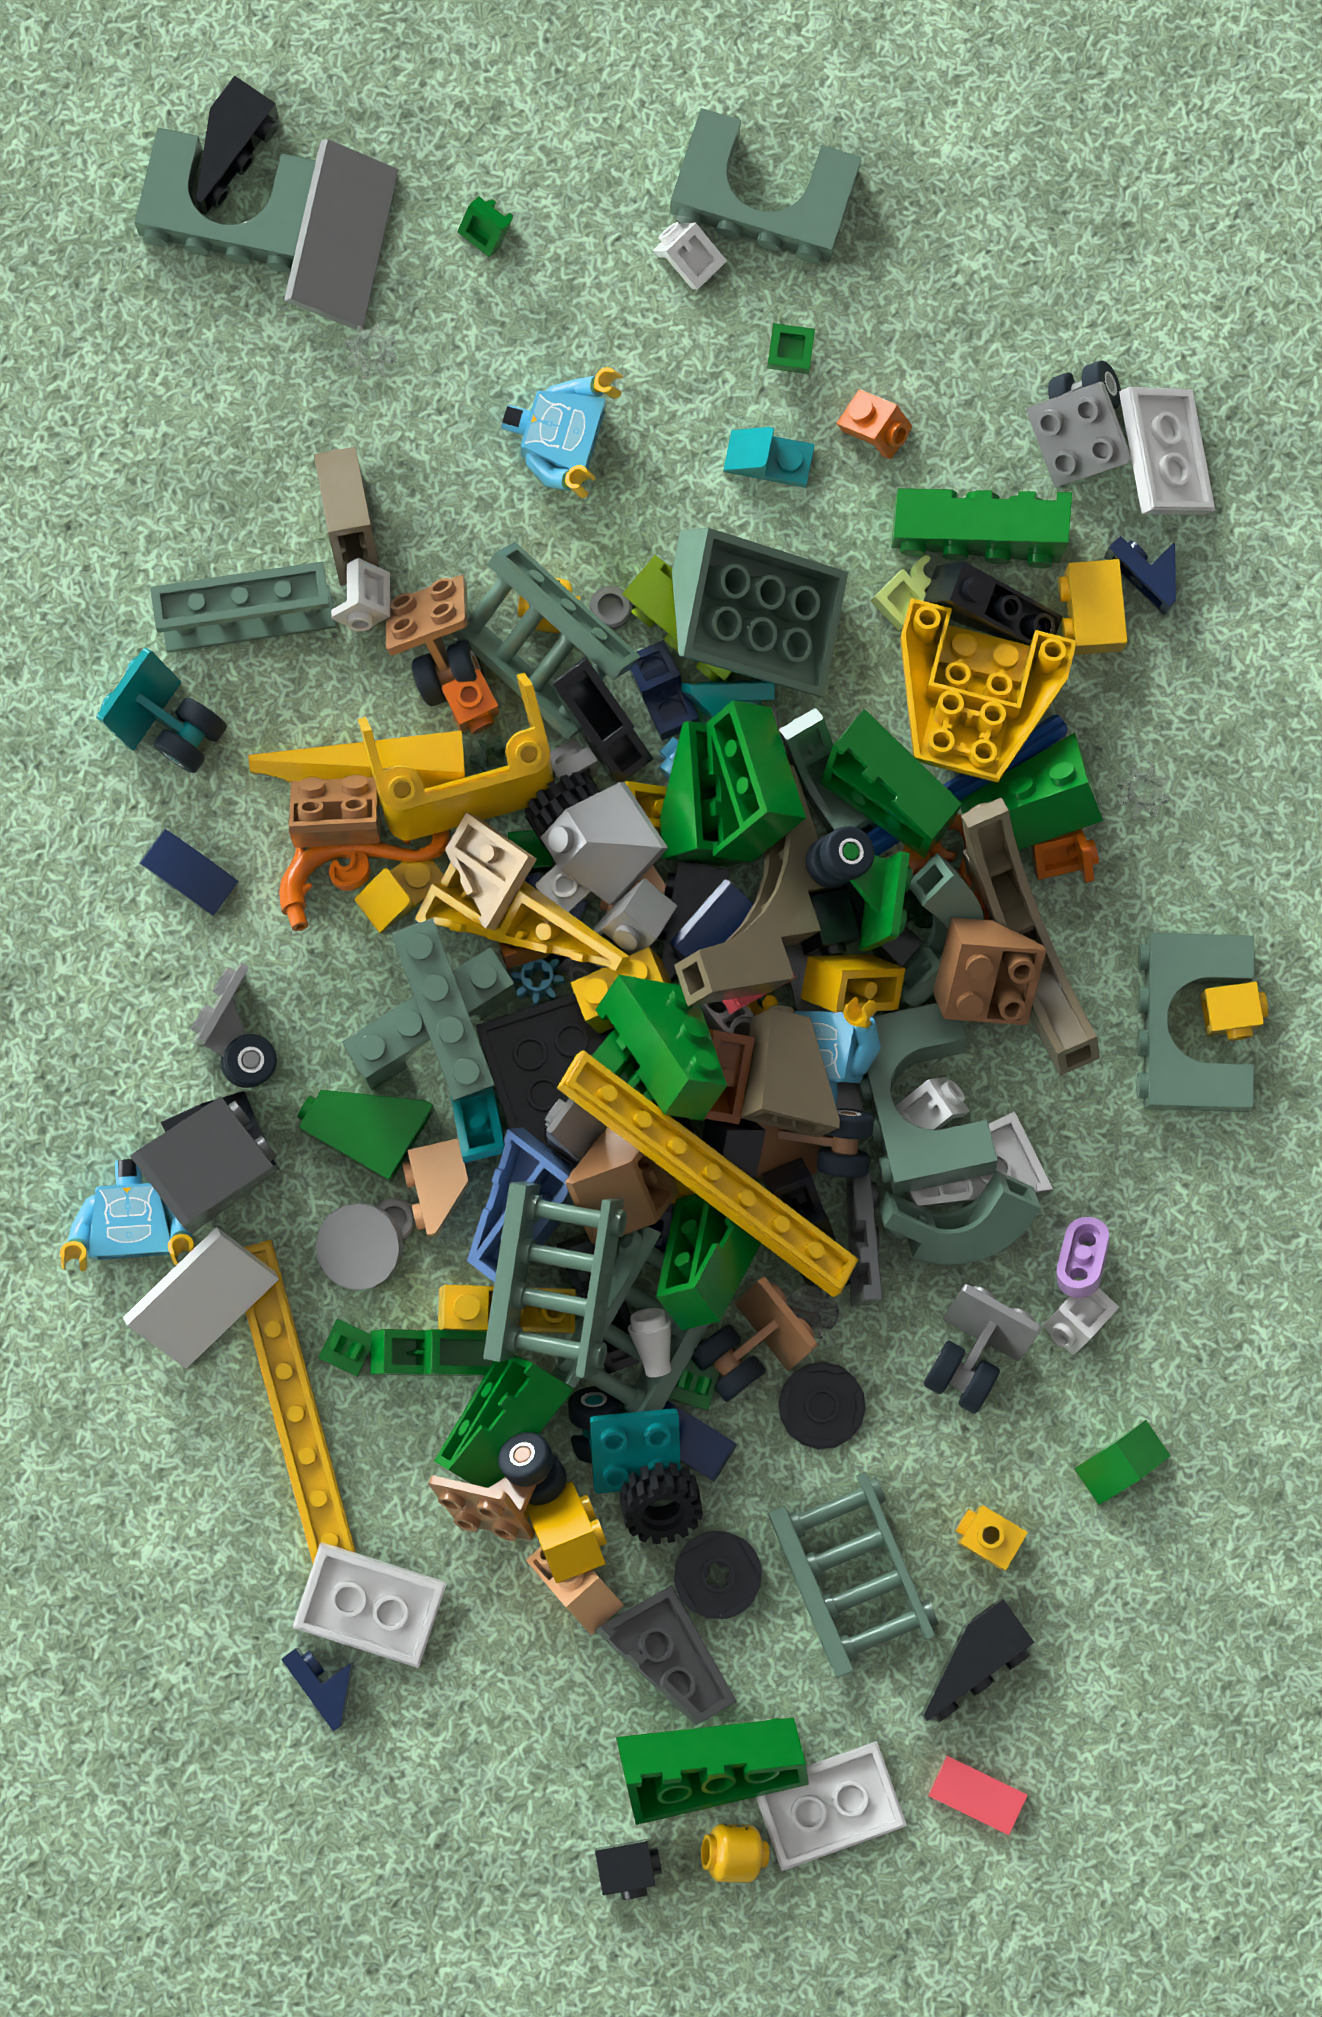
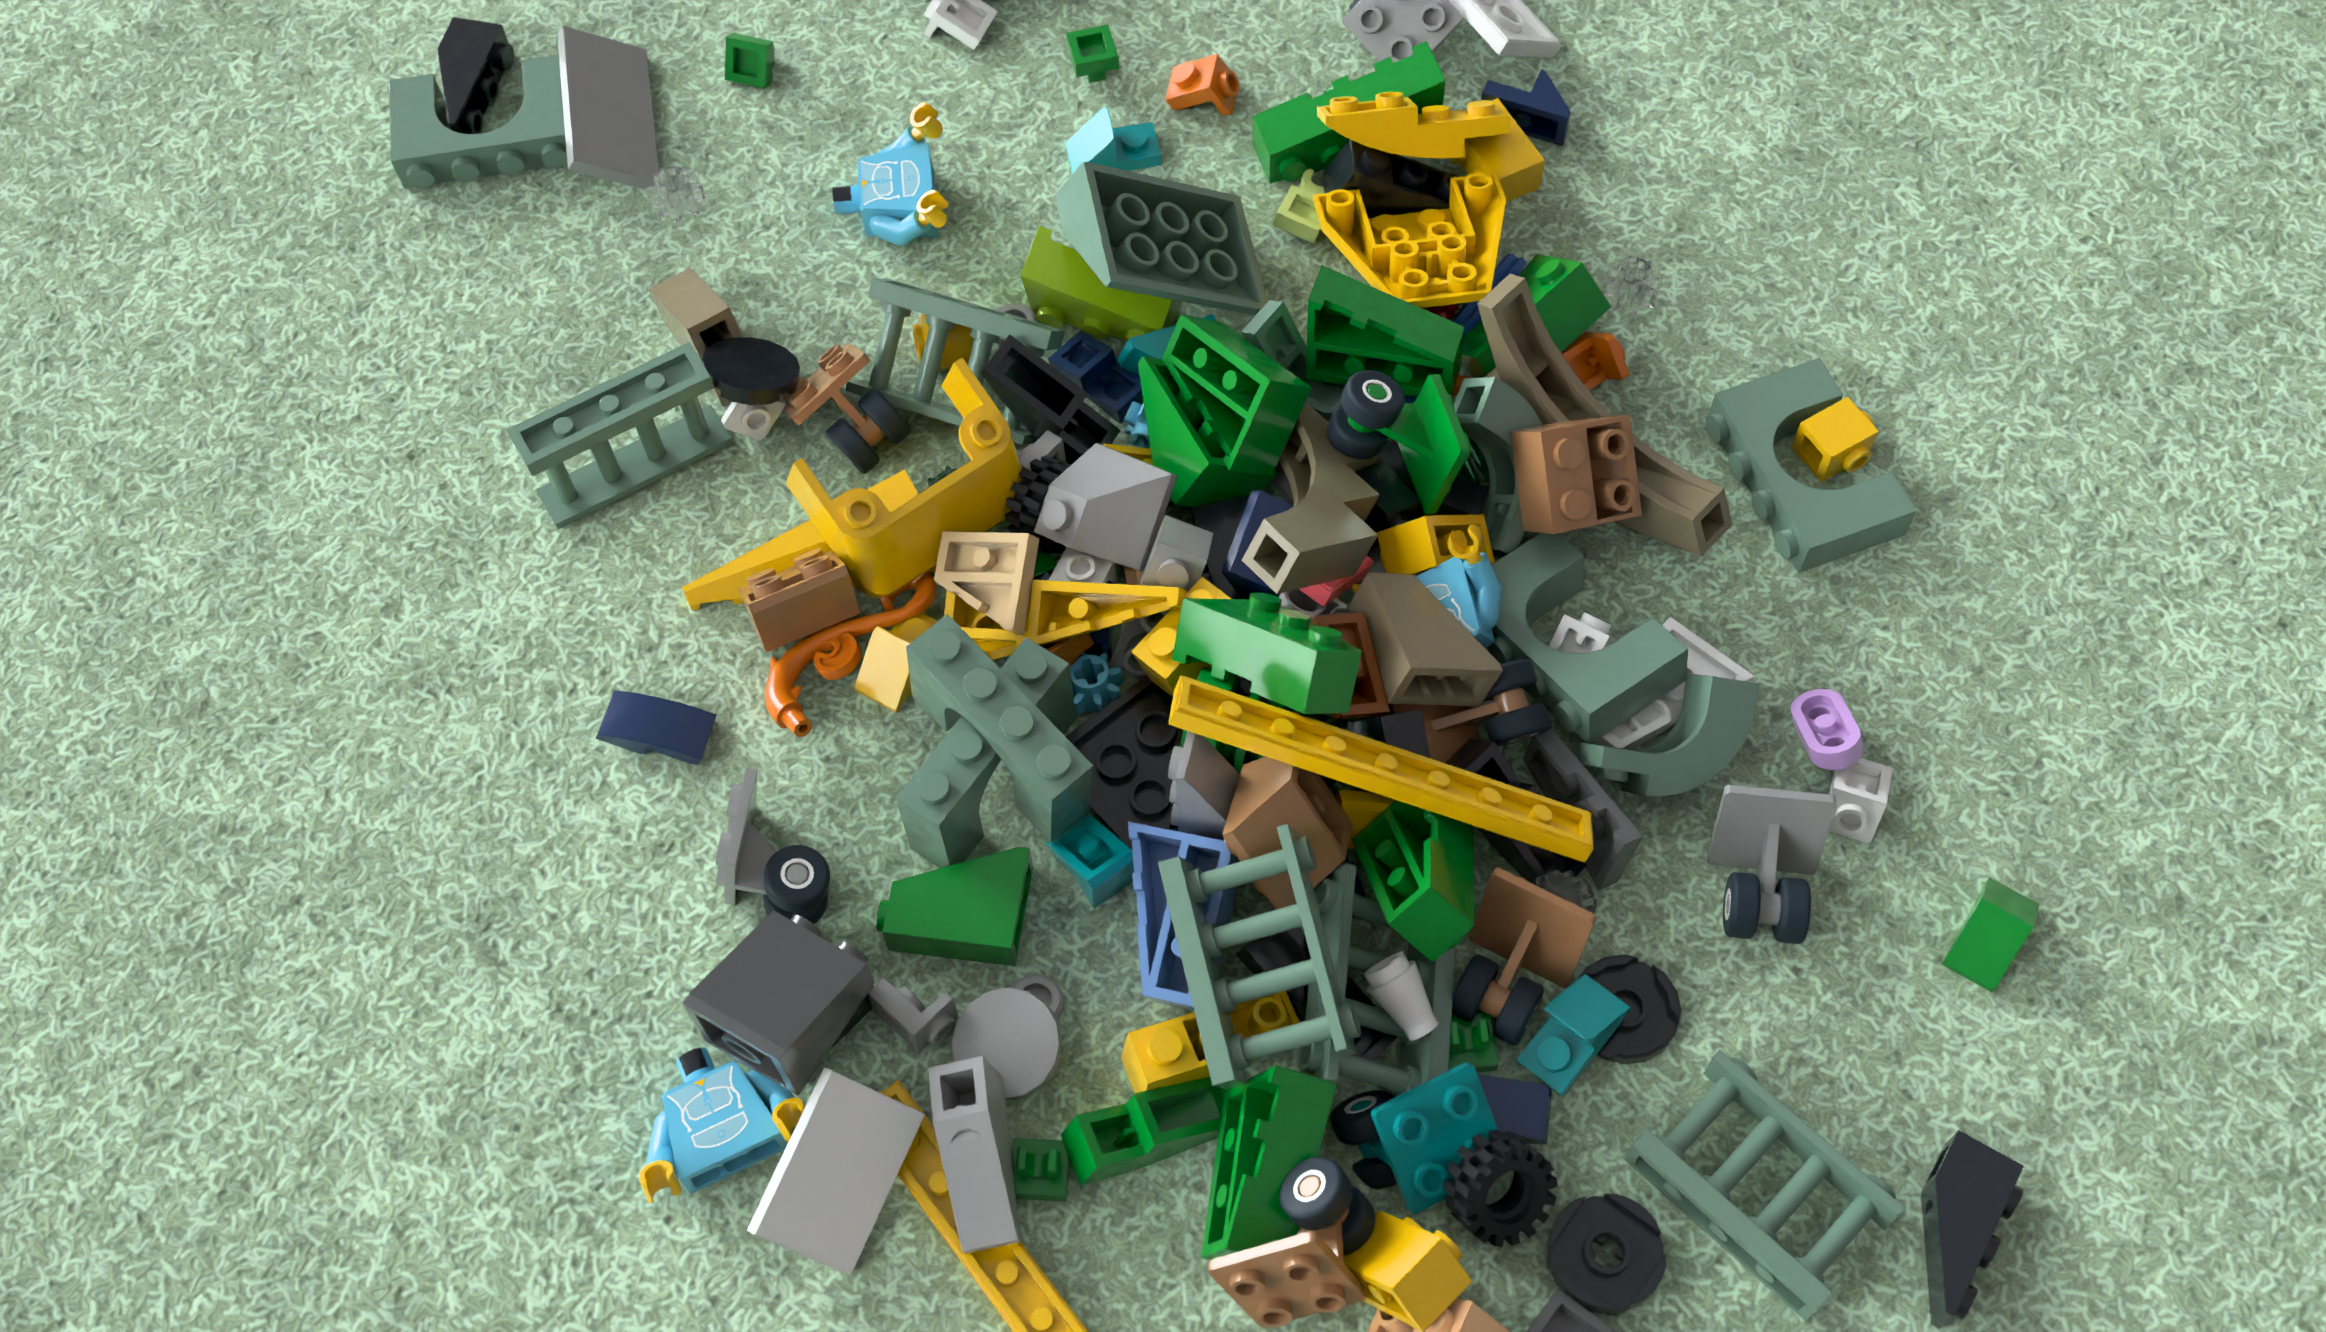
camera: 15 degrees left, 20 degrees down
(140, 701) = (542, 572): teal plate -> none
(293, 1189) = (904, 1014): none -> light grey bracket
(303, 1324) = (975, 1151): none -> light grey slope
(368, 585) = (751, 370): none -> black tile
(439, 1181) = (1071, 933): light nougat slope -> none
(471, 704) = (907, 446): orange bracket -> none
(771, 1411) = (1573, 1034): none -> teal slope
(990, 1536) = (1898, 1071): yellow brick -> none
(1006, 570) = (1397, 128): none -> yellow slope

